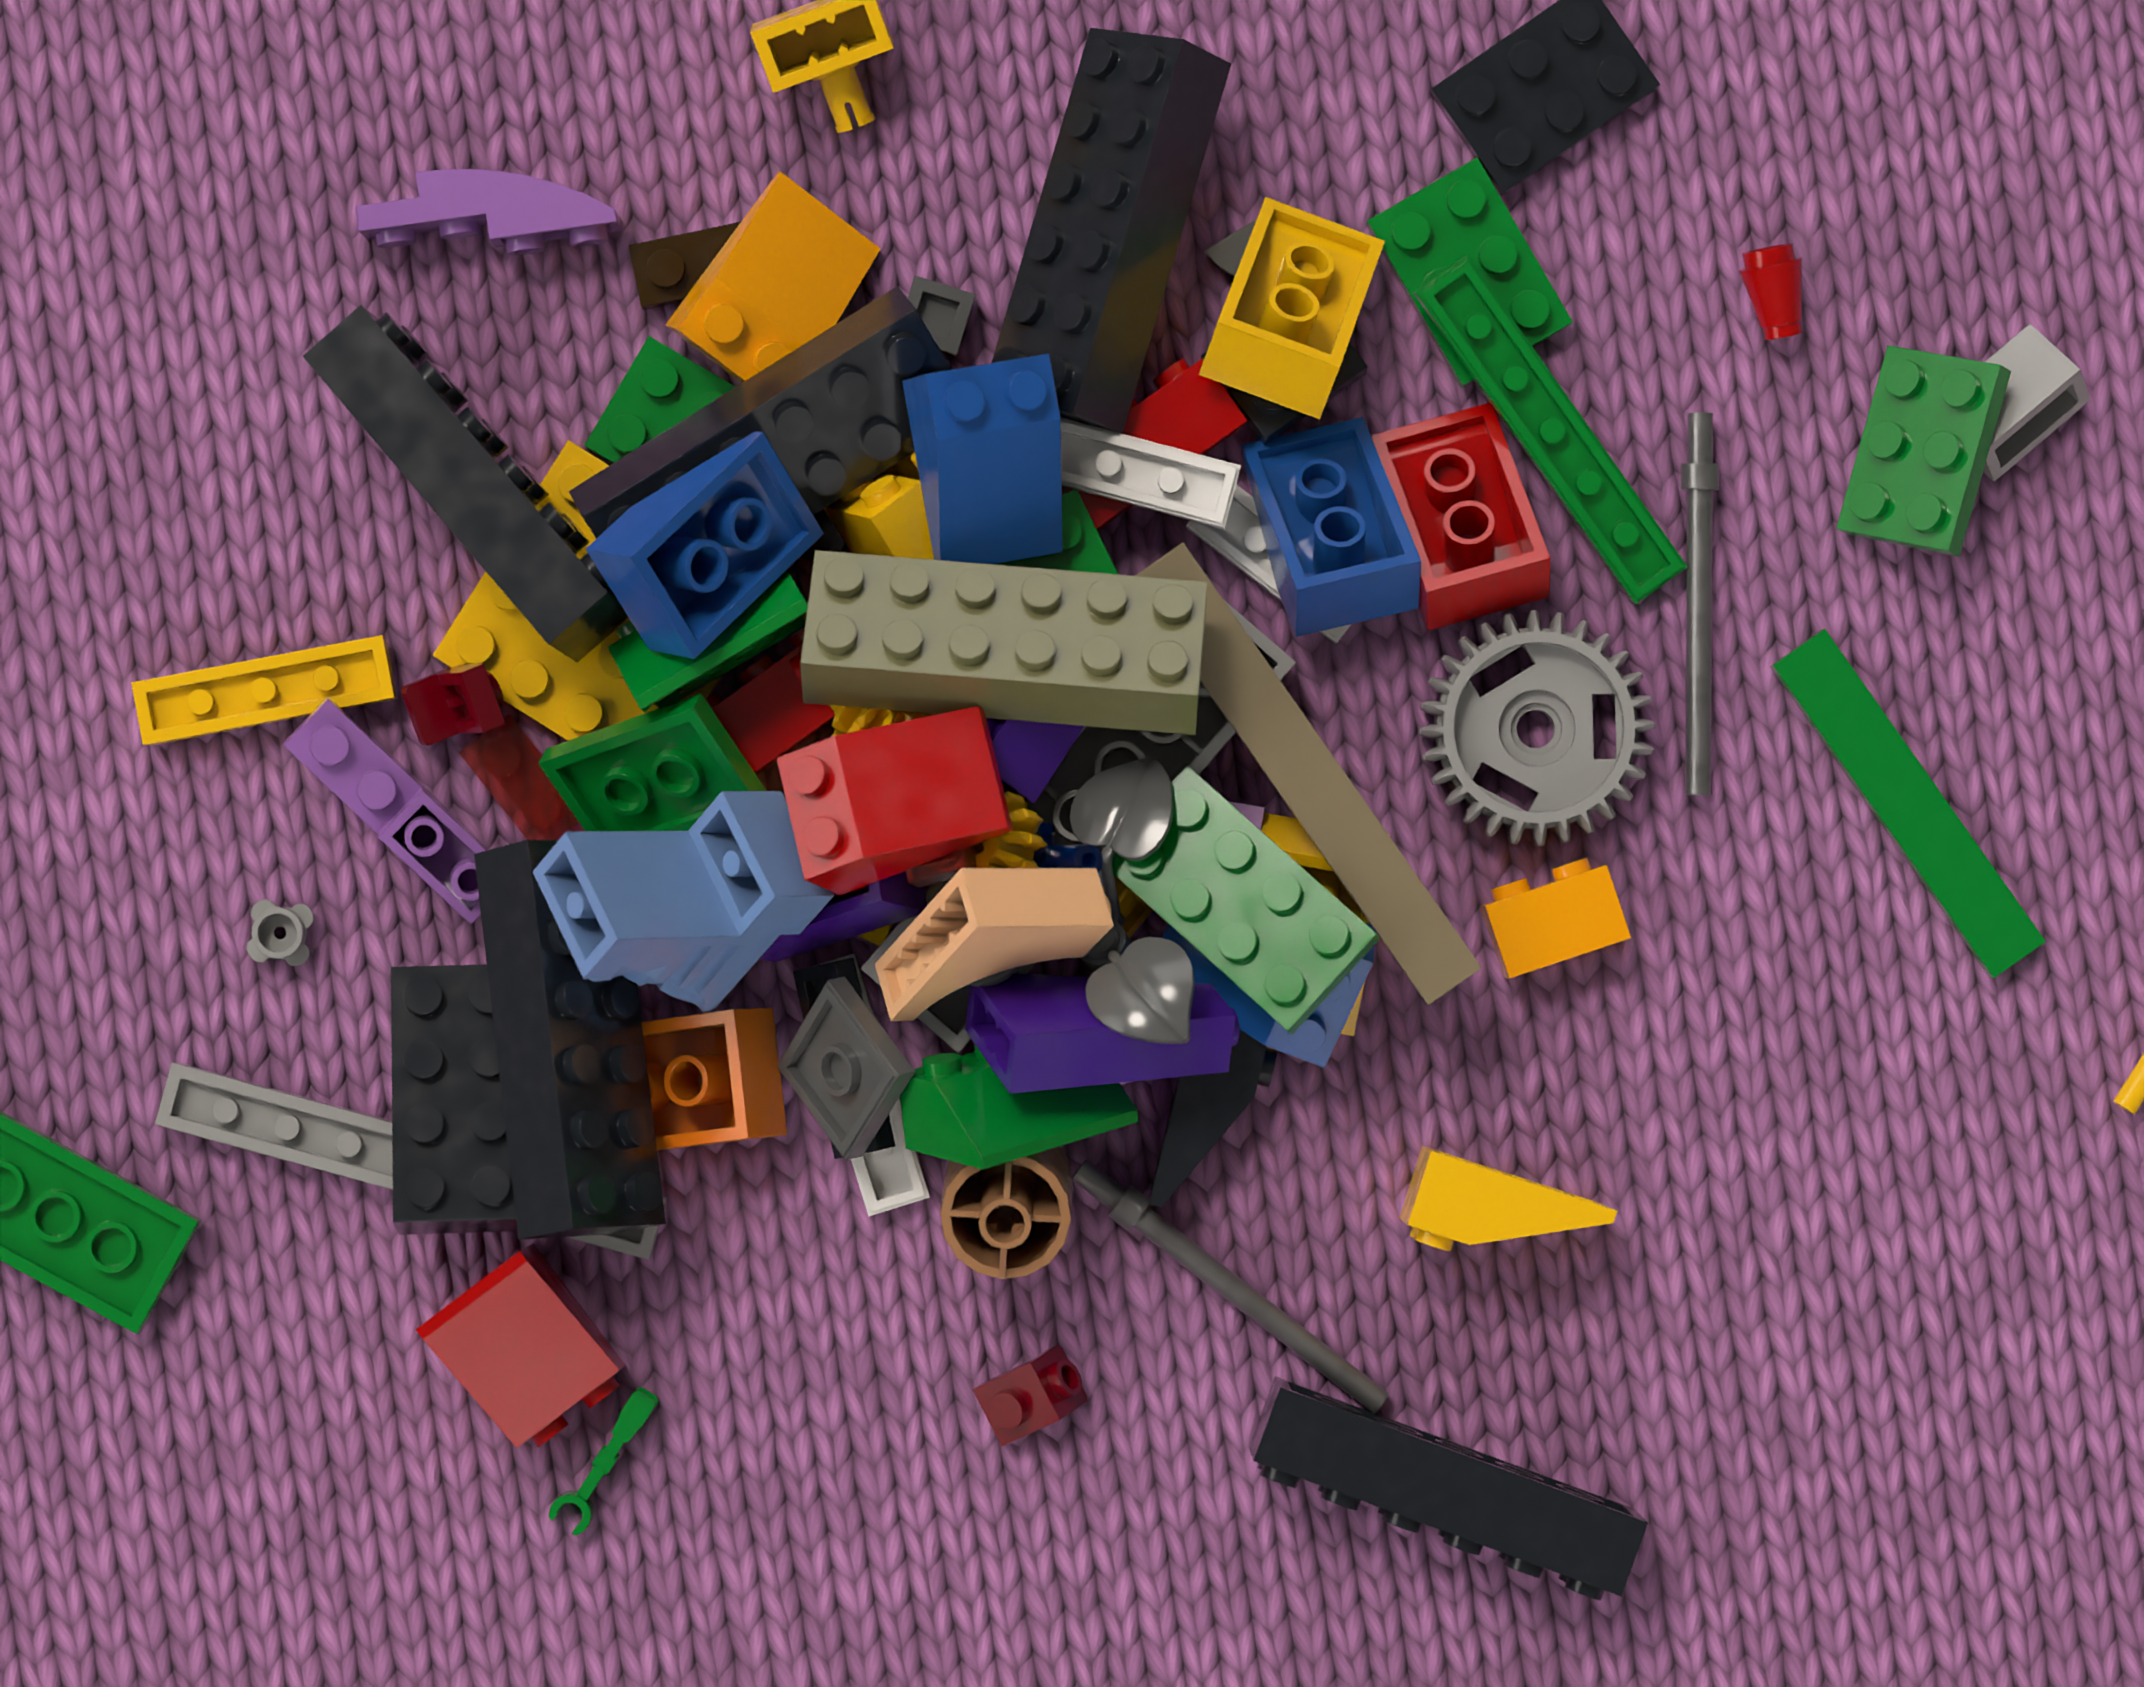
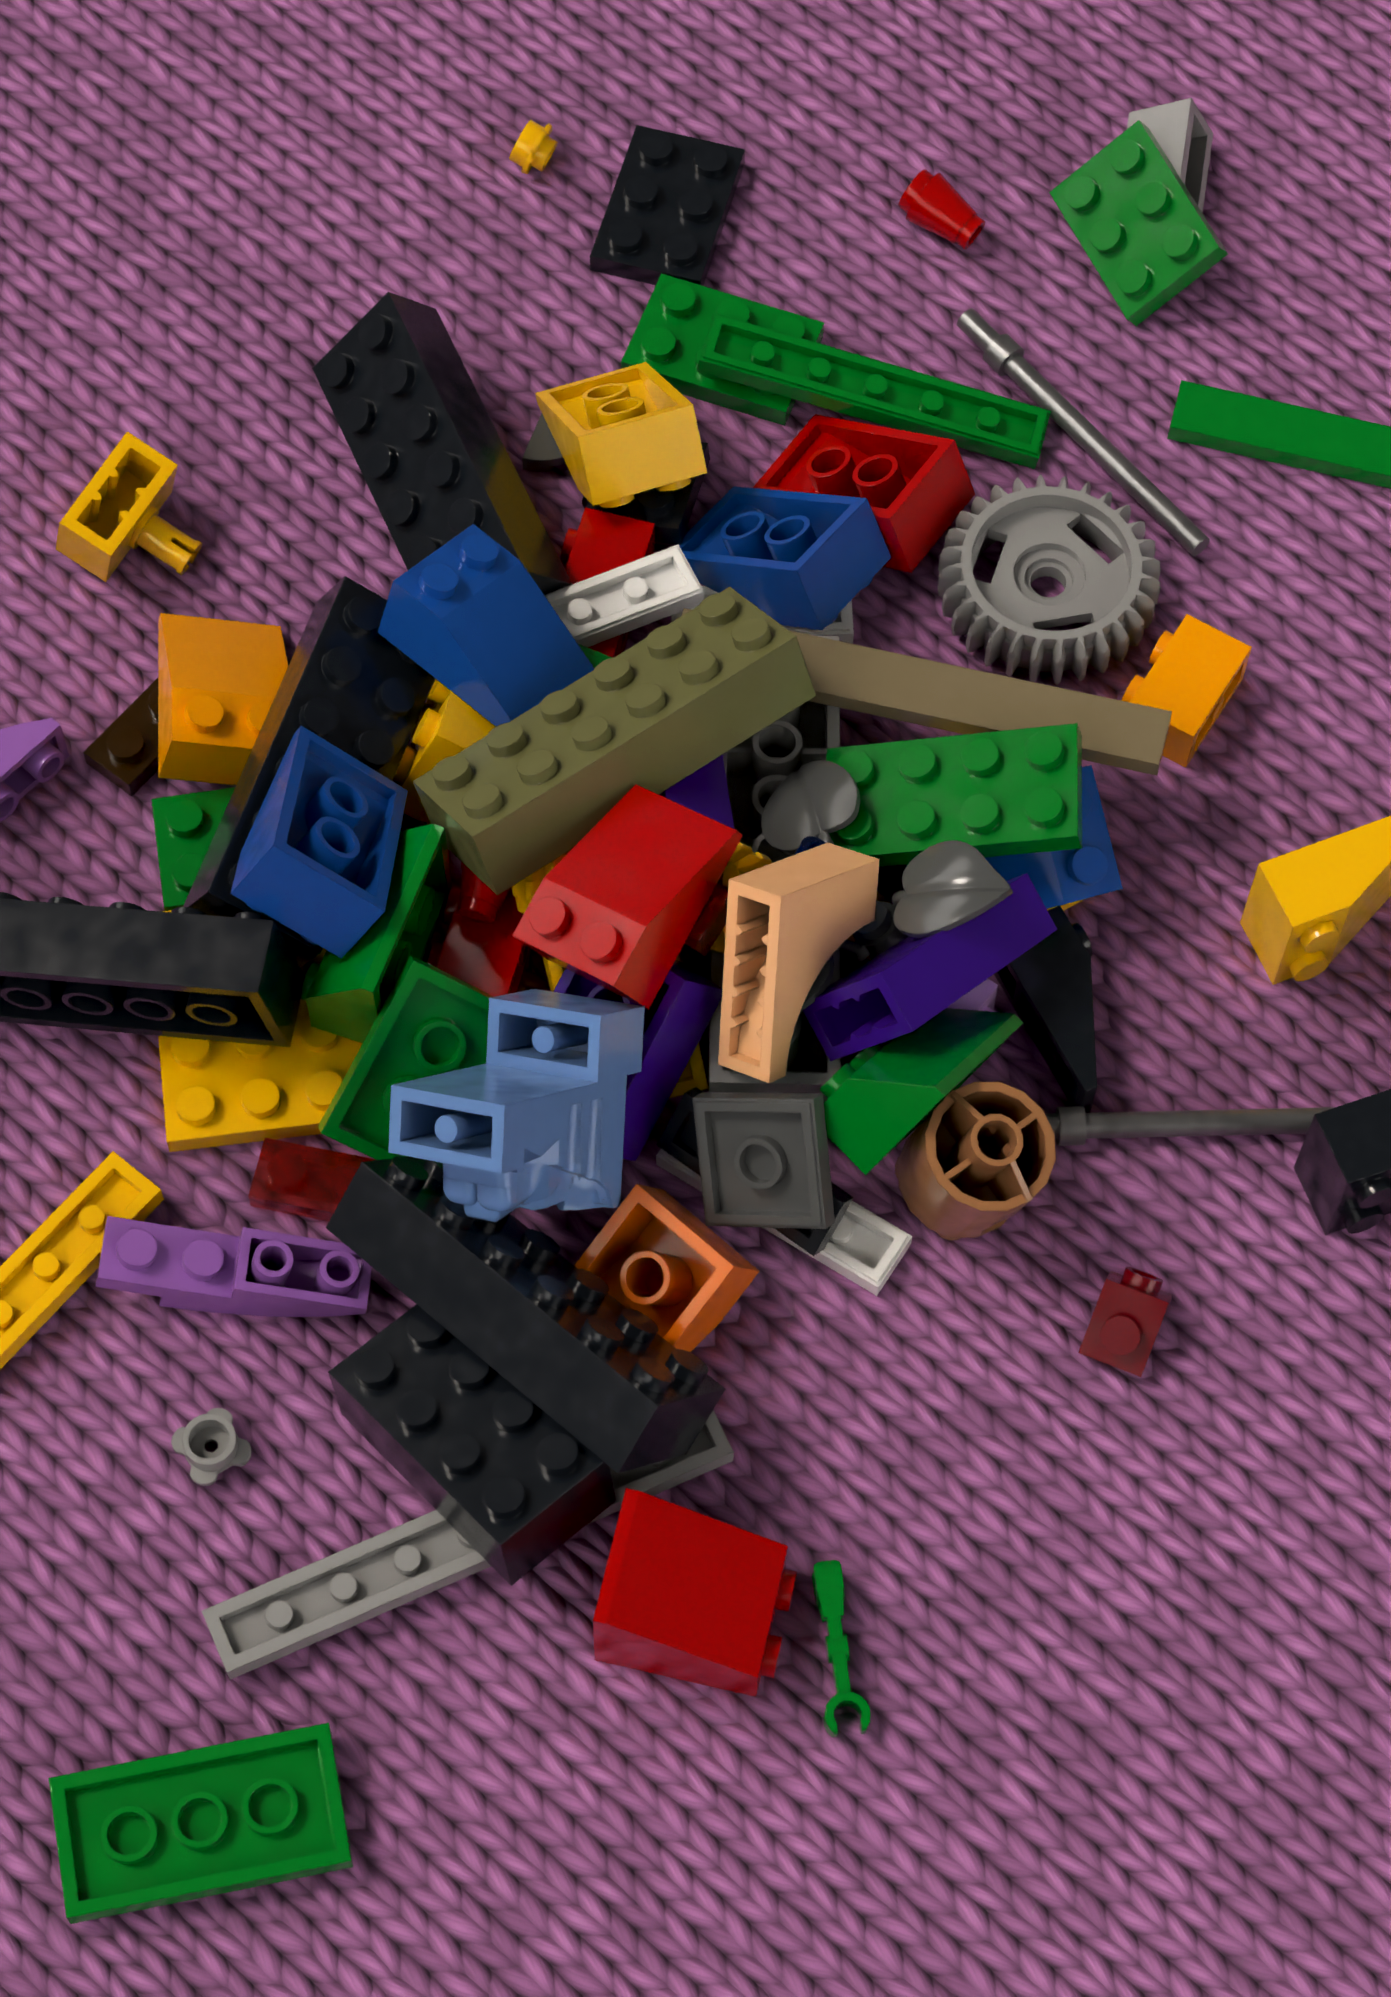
camera: 40 degrees left, 25 degrees down
(454, 703) = (215, 1153): dark red bracket -> none

